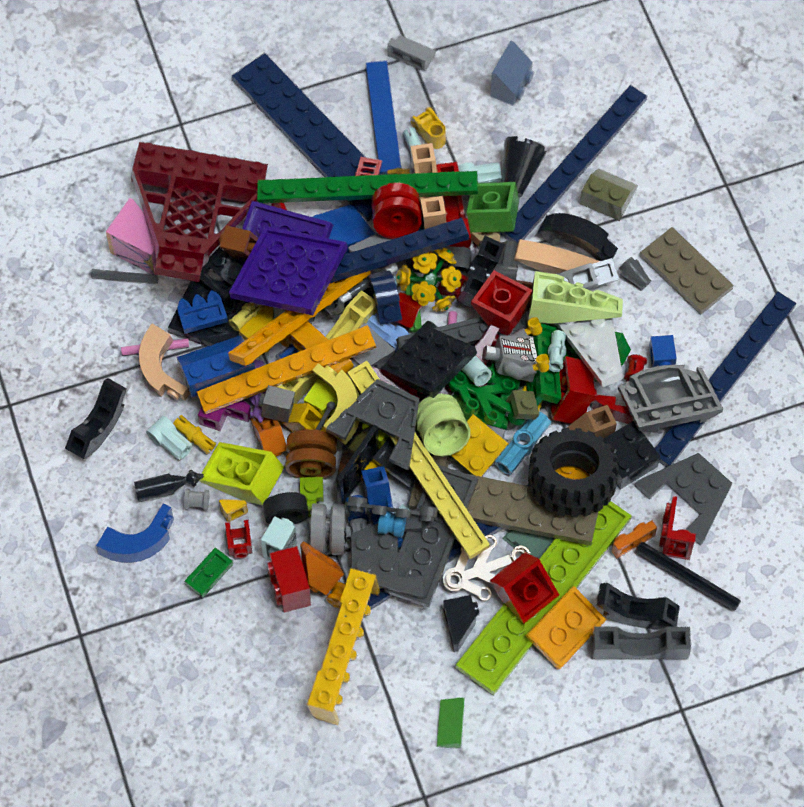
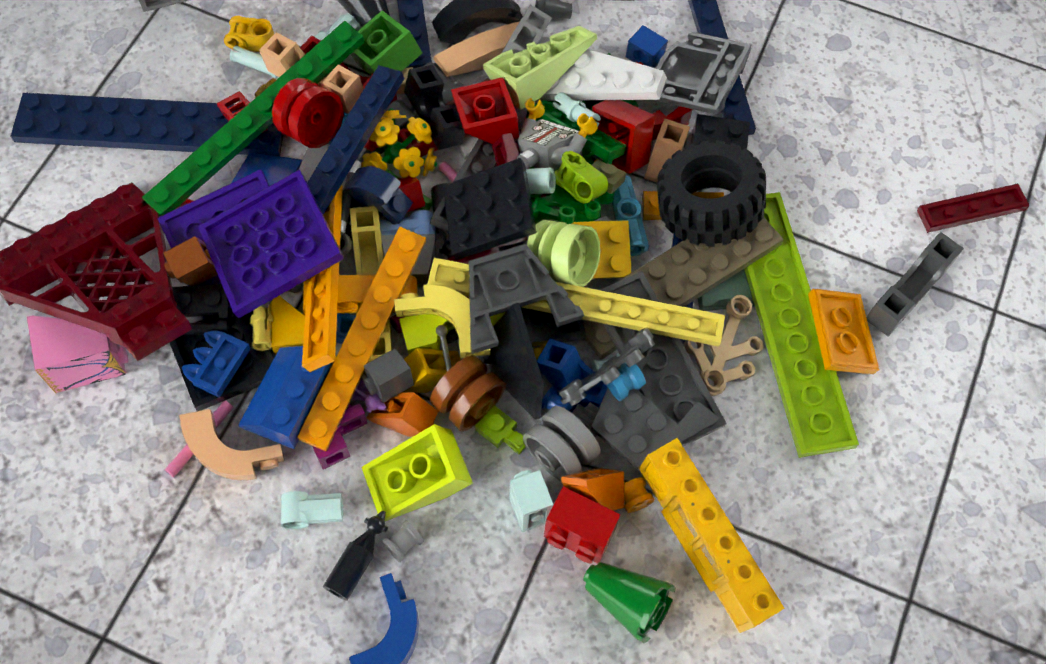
camera: 50 degrees left, 0 degrees up
(100, 422) = (222, 560): black arch -> none
(124, 276) = (94, 401): dark grey bar -> none
(194, 434) = (331, 482): yellow pin -> none
(208, 572) = (493, 598): green plate -> none
(233, 509) = (447, 516): yellow slope -> none
(239, 550) = (482, 525): red window -> none
(275, 642) = (630, 597): none -> green cone
(286, 505) = (501, 465): black tyre -> none
(383, 115) = (194, 58): blue tile -> none
(450, 722) = (855, 508): bright green slope -> none
(460, 619) = (757, 412): black slope -> none
(503, 391) = (580, 178): none -> lime piece
(525, 587) = (779, 327): red slope -> none
(626, 543) = (801, 216): orange plate -> none
(636, 611) = (880, 260): black arch -> none
(675, 543) = (826, 174): red bracket -> none
(688, 576) = (872, 199): black axle -> none
(696, 484) = (796, 125): dark grey wing -> none
(748, 641) = (972, 208): none -> dark red tile

